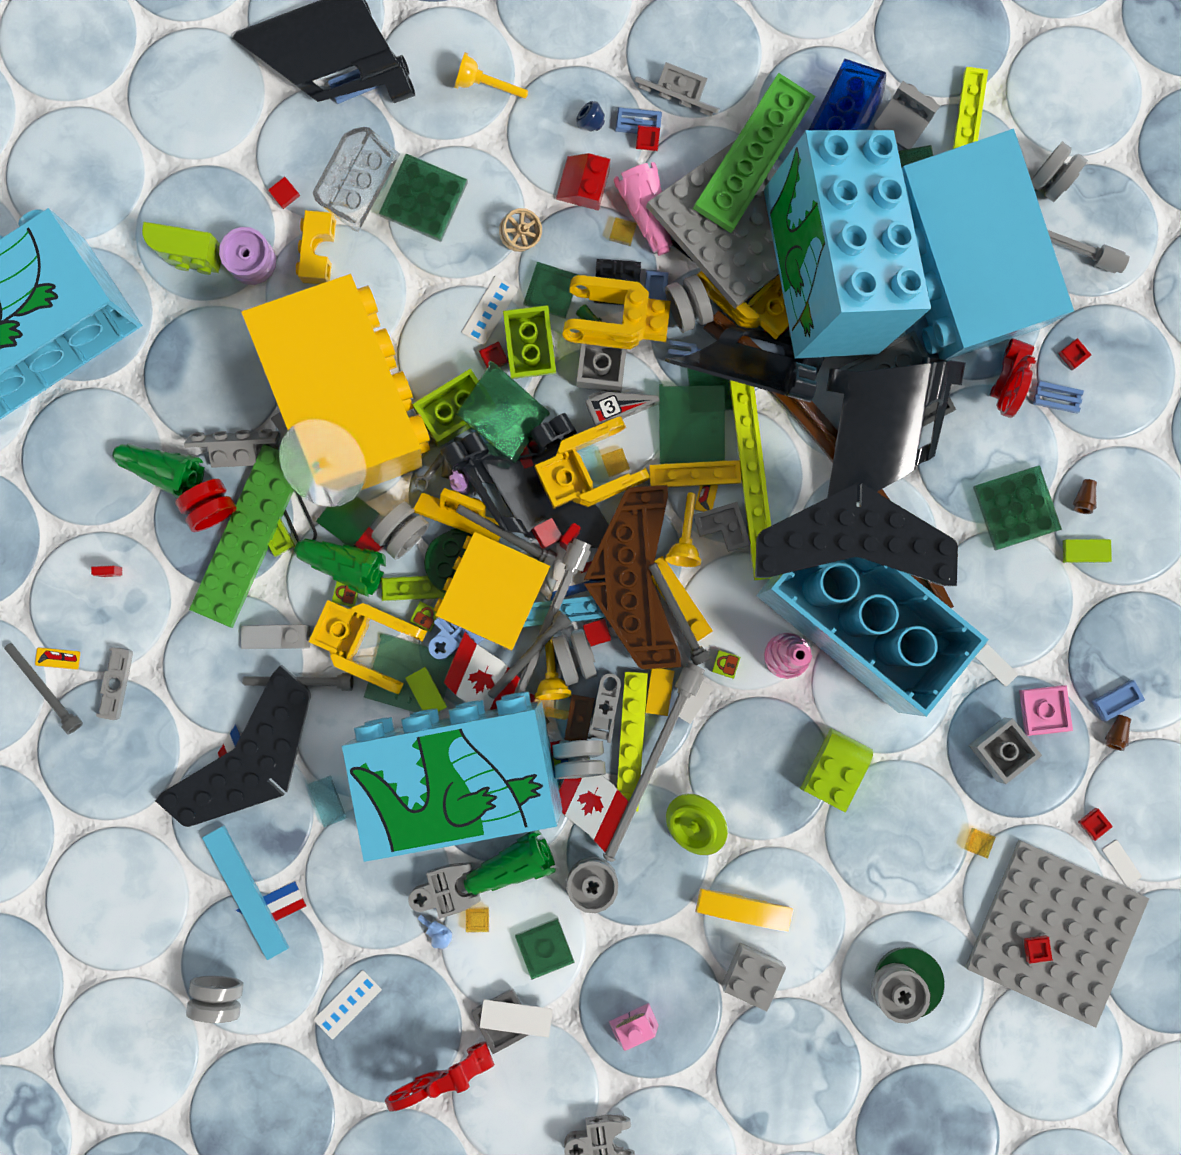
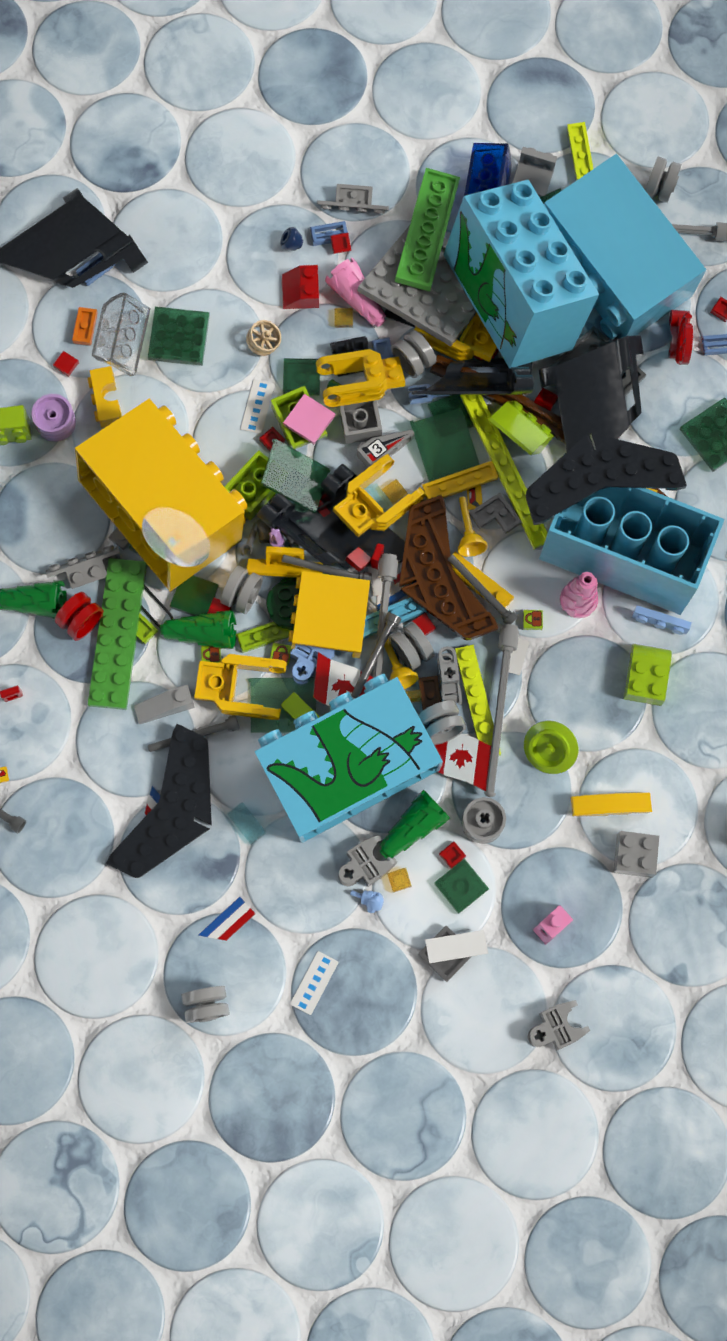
camera: 20 degrees left, 10 degrees down
(112, 700) = (43, 768): light grey piece -> none
(245, 892) = (202, 916): medium azure tile -> none
(318, 153) = (84, 326): none -> orange plate
(442, 1081) = (426, 997): red piece -> none
(470, 74) = (186, 234): yellow piece -> none
(539, 349) = (309, 419): none -> bright pink tile
(546, 909) = (452, 855): none -> red tile
(659, 692) = (487, 656): yellow tile -> none
(786, 432) = (522, 427): none -> lime slope
(828, 404) = (546, 399): none -> red tile
(873, 712) = (661, 620): none -> light blue plate

